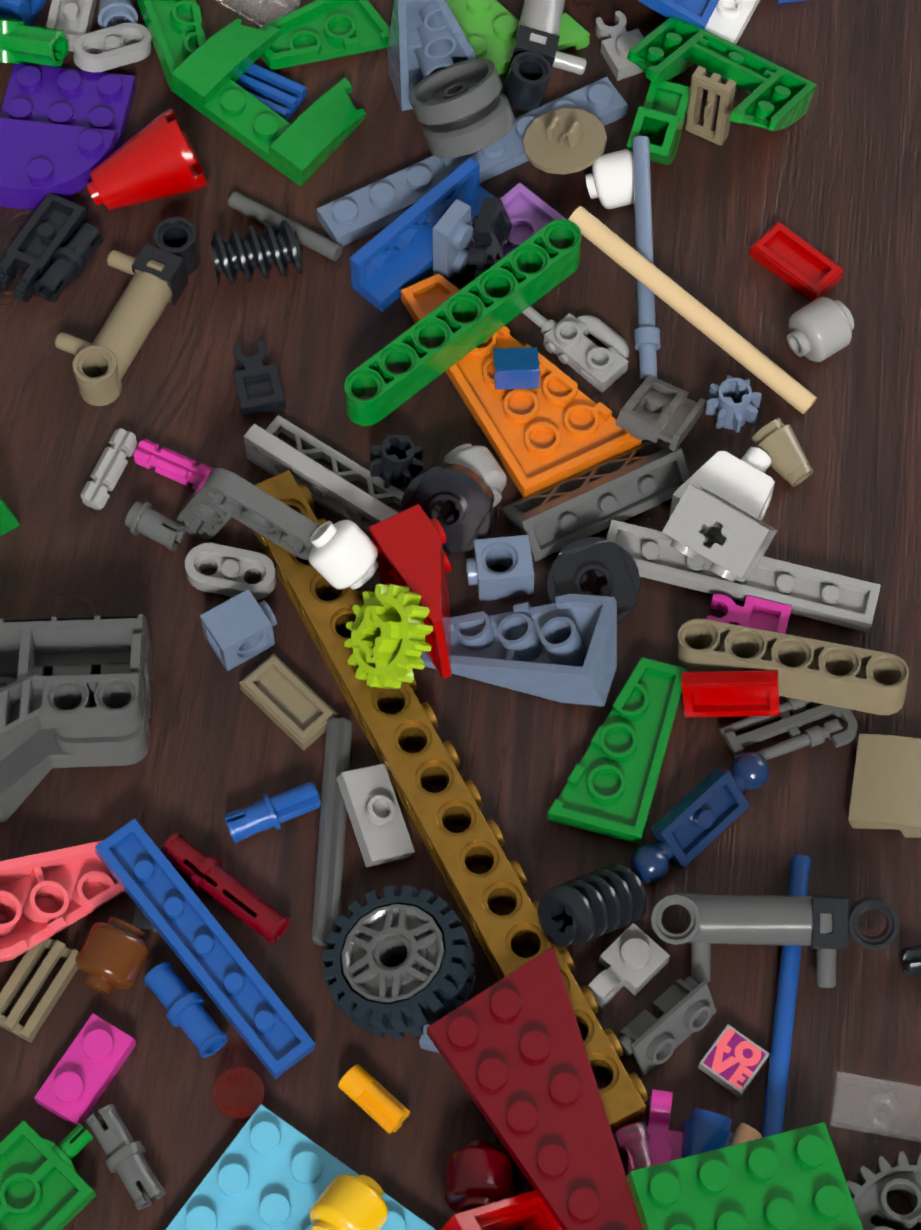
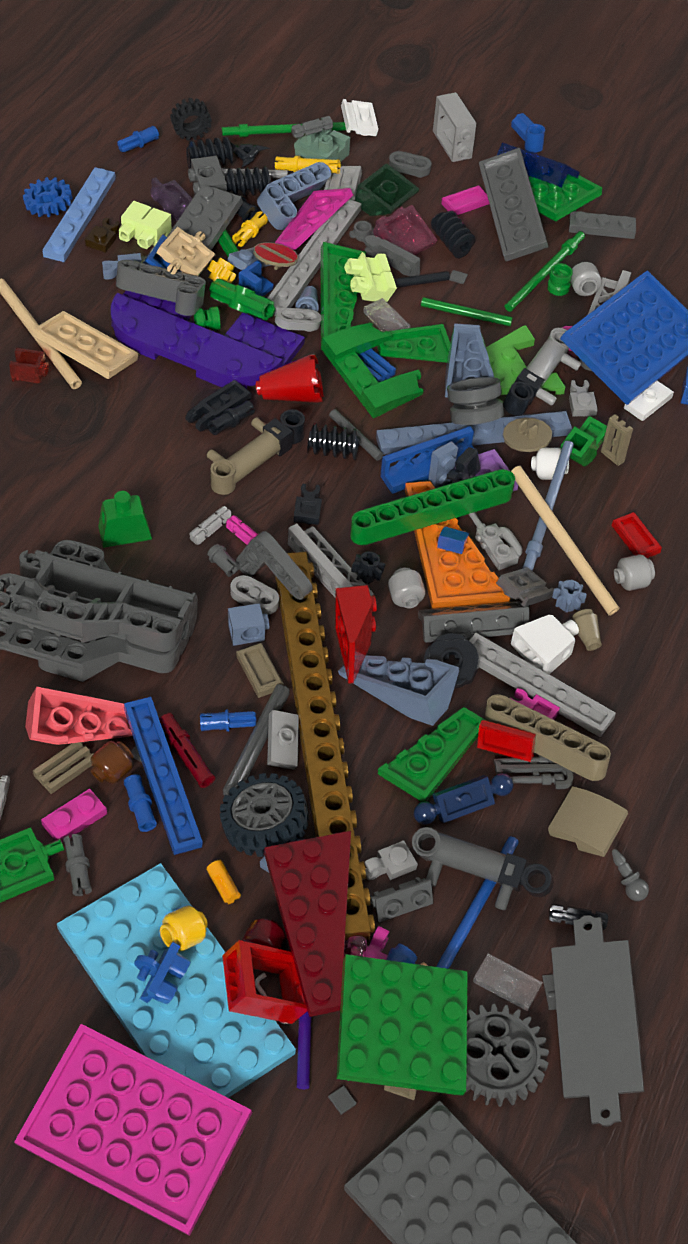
camera: 15 degrees right, 10 degrees down
(238, 1092) = (151, 854): clear red plate -> none
(343, 554) = (316, 598): white head -> none
(388, 636) = (323, 645): lime gear -> none
(466, 490) = (400, 596): black plate -> none
(510, 552) = (412, 636): sand blue brick -> none
(592, 905) = (382, 819): black piece -> none
(733, 1061) = (432, 930): tile -> none
(745, 534) = (544, 660): light grey brick -> none
(776, 94) = (653, 442): green wedge -> none

